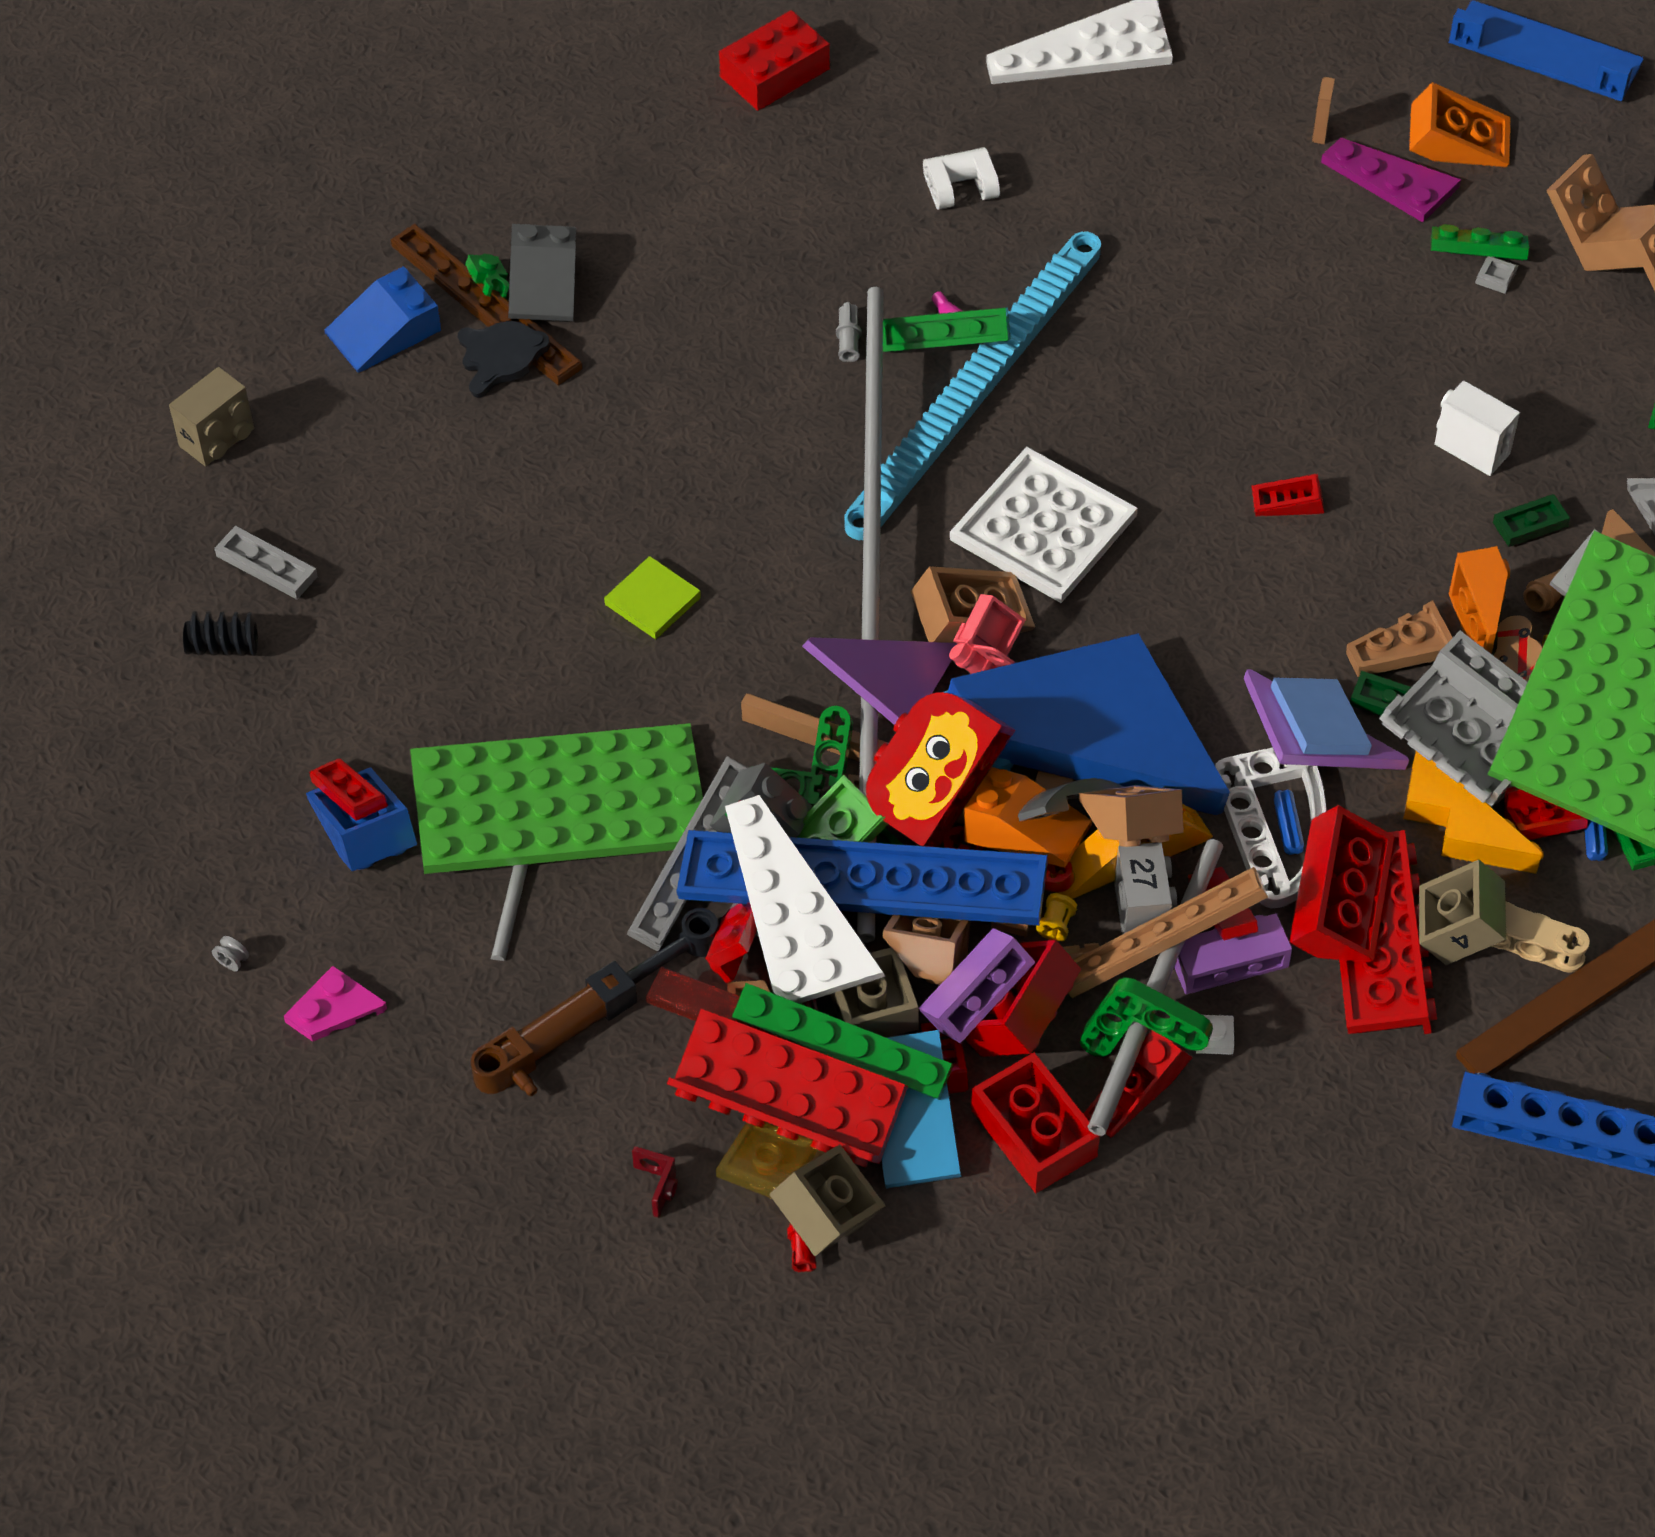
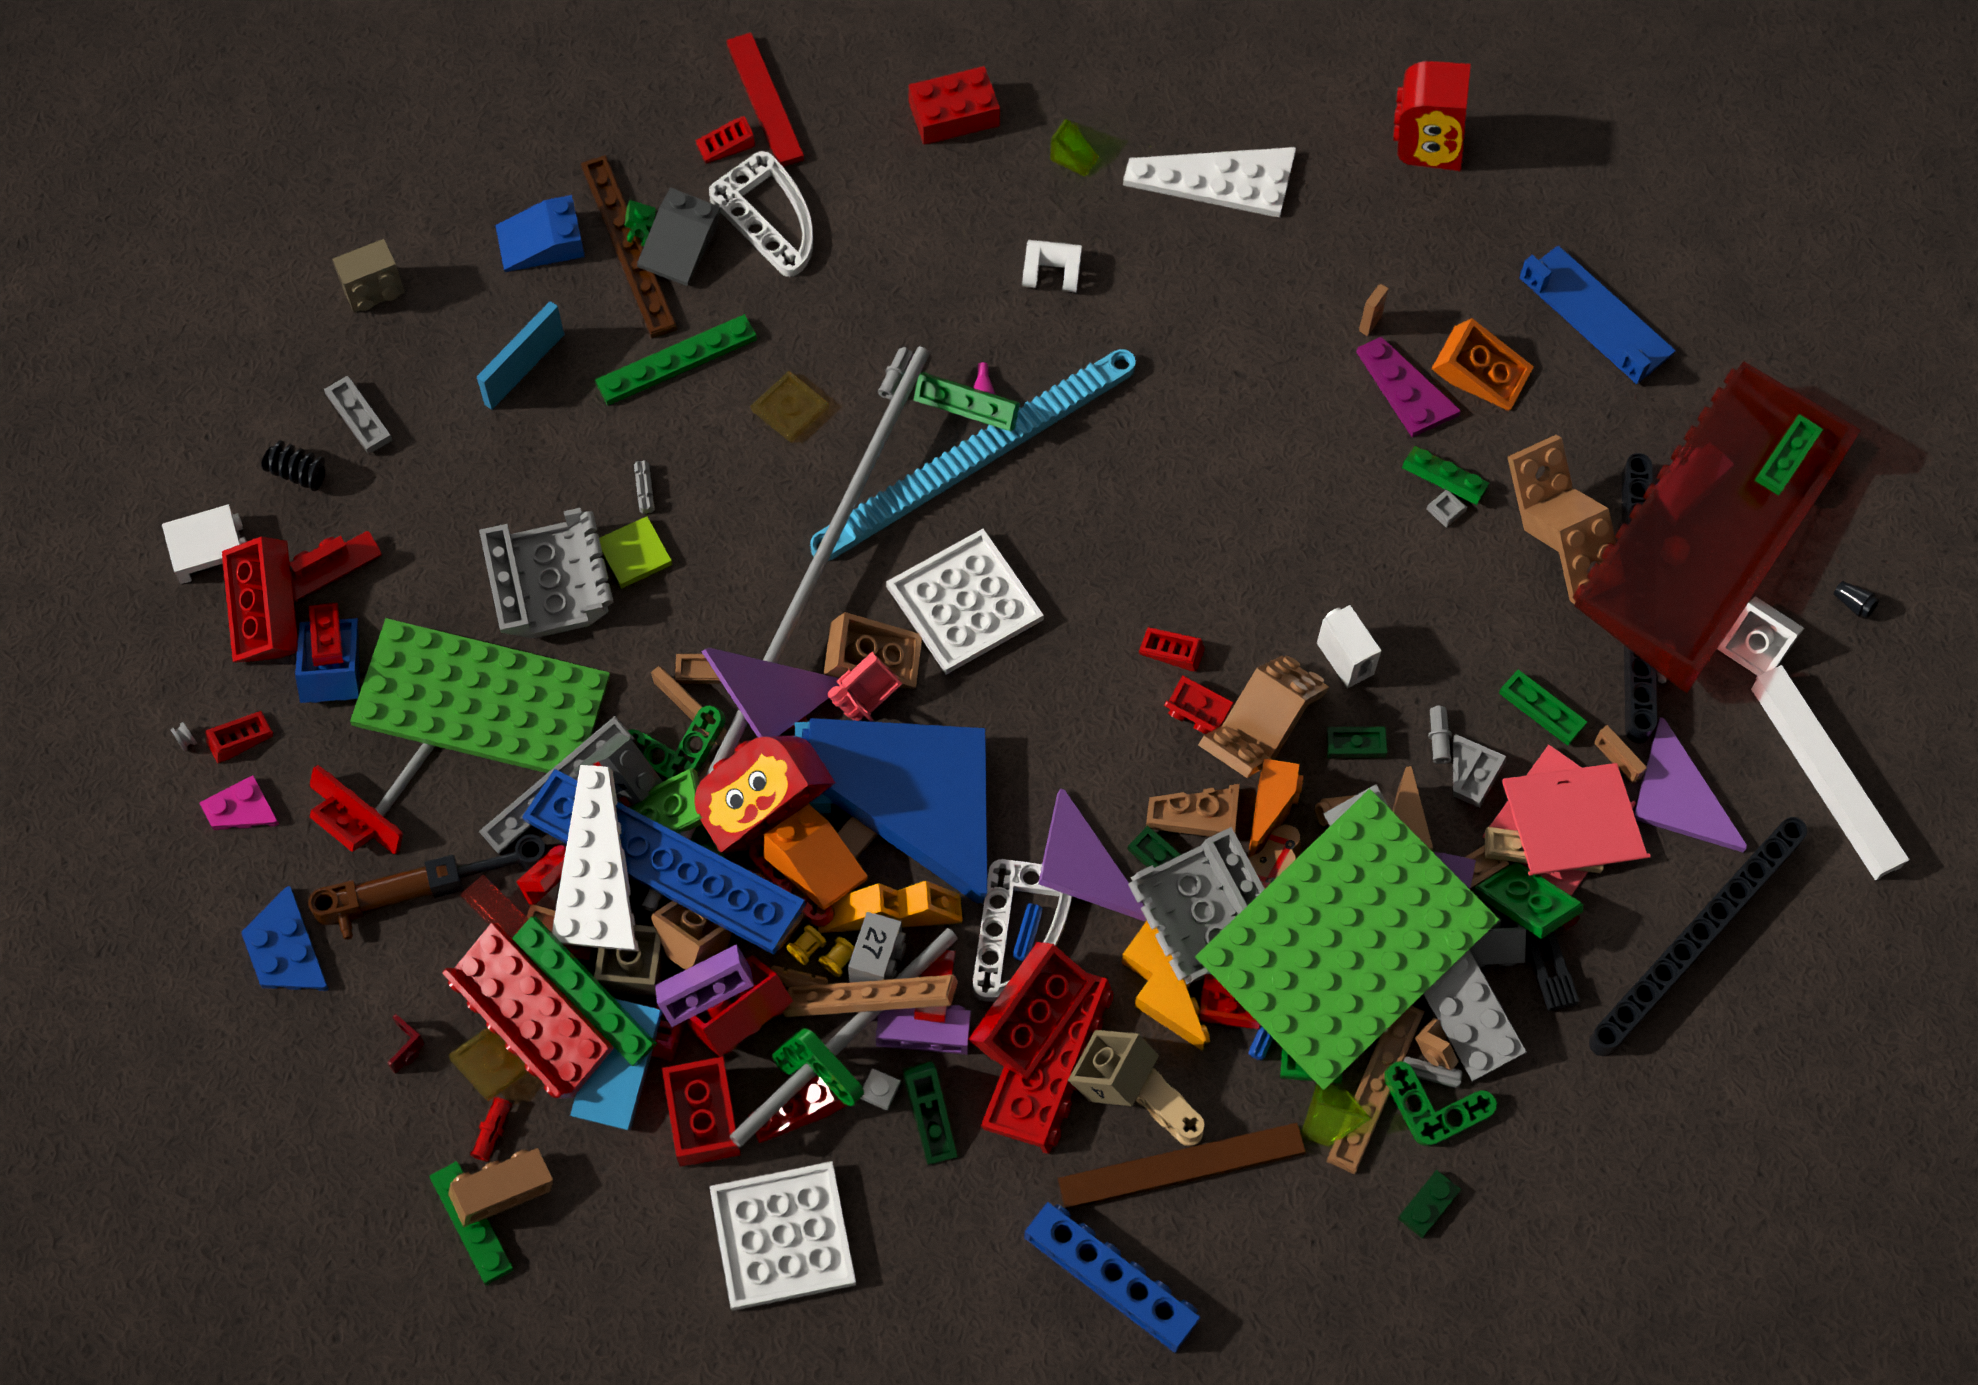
camera: 20 degrees right, 10 degrees up
(153, 745) = (200, 538): none -> white panel
(253, 779) = (260, 600): none -> red slope
(283, 952) = (230, 748): none -> red slope
(305, 726) = (330, 562): none -> red bracket
(427, 440) = (520, 355): none -> dark azure tile
(460, 1132) = (282, 947): none -> blue wing
(470, 966) = (348, 816): none -> red bracket
(500, 353) = (616, 296): black tile -> none
(551, 152) = (736, 145): none -> red slope
(563, 119) = (765, 100): none -> red tile
(576, 646) = (547, 576): none -> light grey slope
(597, 396) = (676, 359): none -> green plate
(630, 530) = (644, 487): none -> light grey axle
(636, 243) = (768, 234): none -> white beam
(748, 401) = (789, 406): none -> clear yellow tile
(794, 684) = (694, 670): none -> medium nougat tile
(827, 1200) = (511, 1115): dark tan brick -> none
(830, 1339) = (477, 1237): none -> green plate
(849, 1282) = (500, 1186): none -> medium nougat brick
(922, 64) = (1071, 149): none -> clear neon green slope
(1055, 799) = (830, 855): dark grey slope -> none
(1098, 916) = (838, 956): none -> yellow bush
(1135, 813) = (890, 889): medium nougat slope -> none
(1190, 1219) = (782, 1236): none -> white plate
(1283, 1033) = (929, 1112): none -> dark green slope
(1321, 716) = (1093, 854): medium blue tile -> none
(1349, 539) = (1198, 705): none -> red bracket
(1429, 518) = (1264, 715): none -> medium nougat bracket
(1612, 485) = (1440, 735): none -> light grey axle

